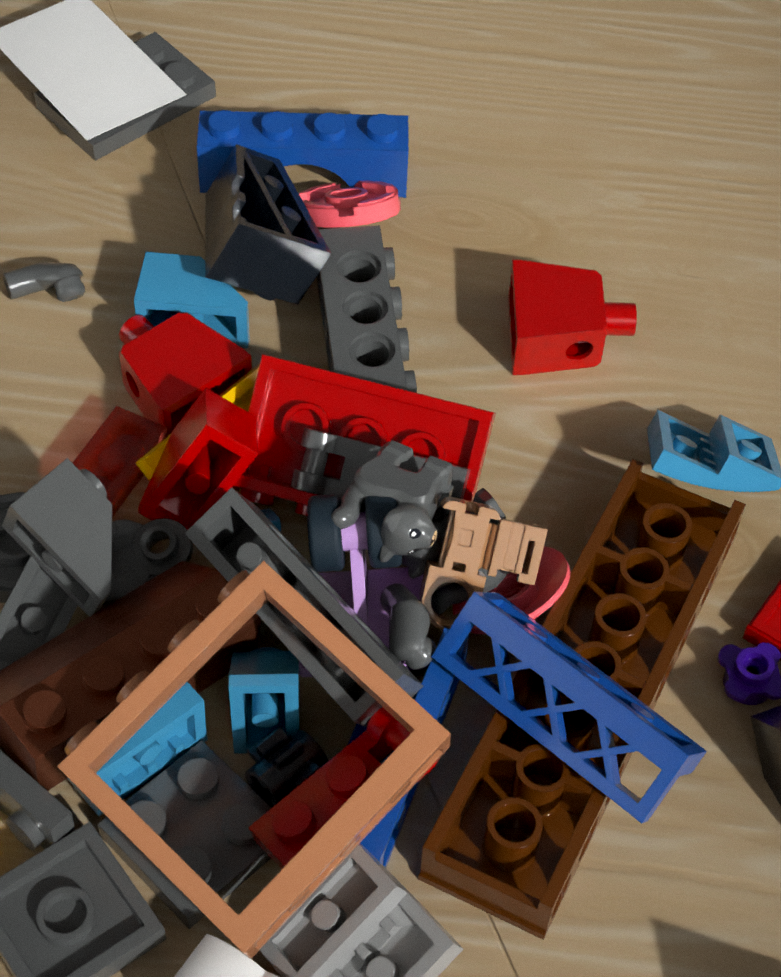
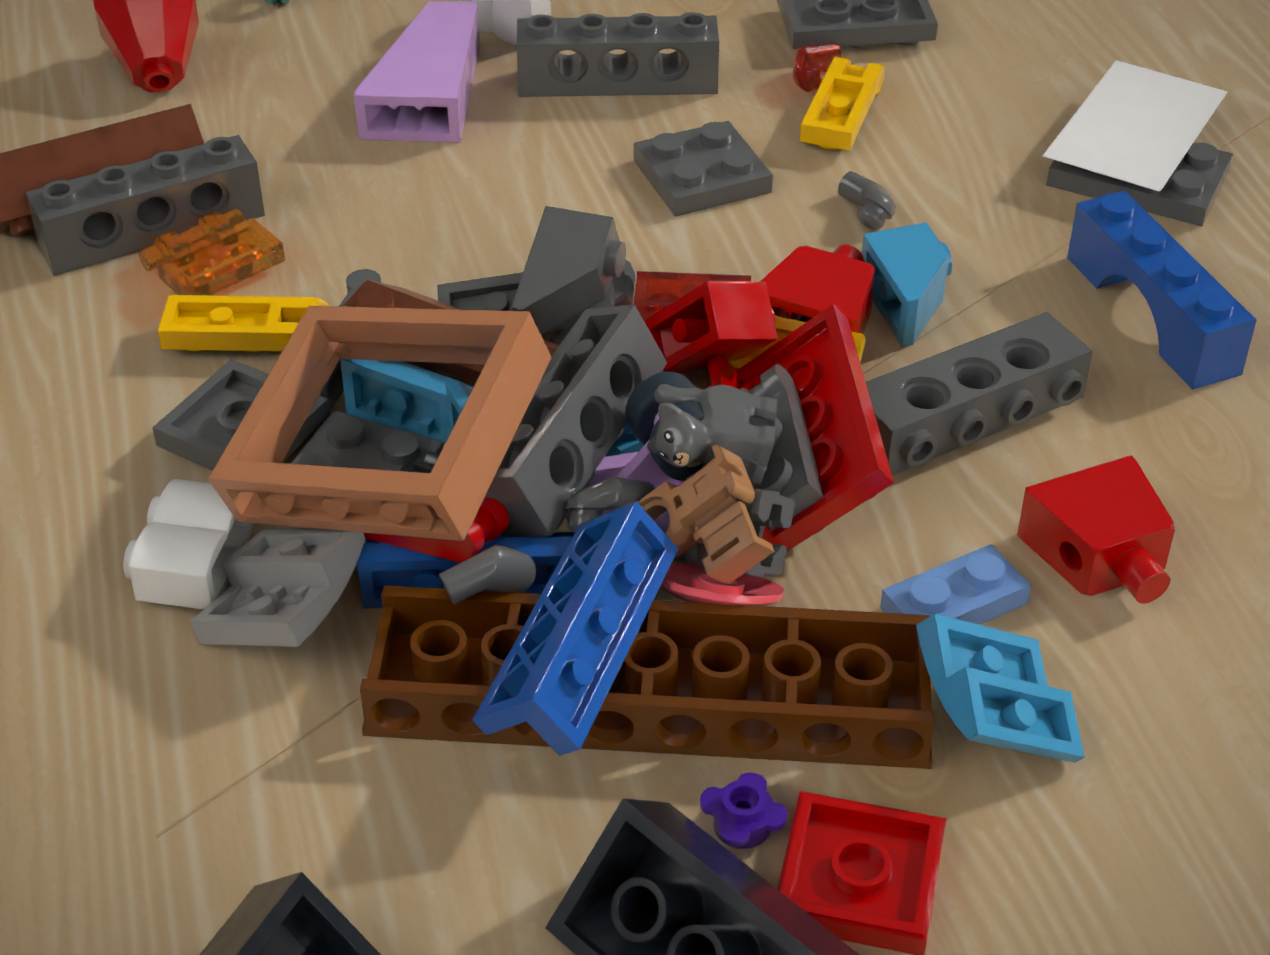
camera: 70 degrees right, 10 degrees down
(260, 229) = (1006, 270): black wedge -> none
(348, 207) = (1115, 333): coral tile -> none
(465, 753) = (494, 569): none -> dark grey arm
(574, 443) = (966, 589): none -> medium blue plate

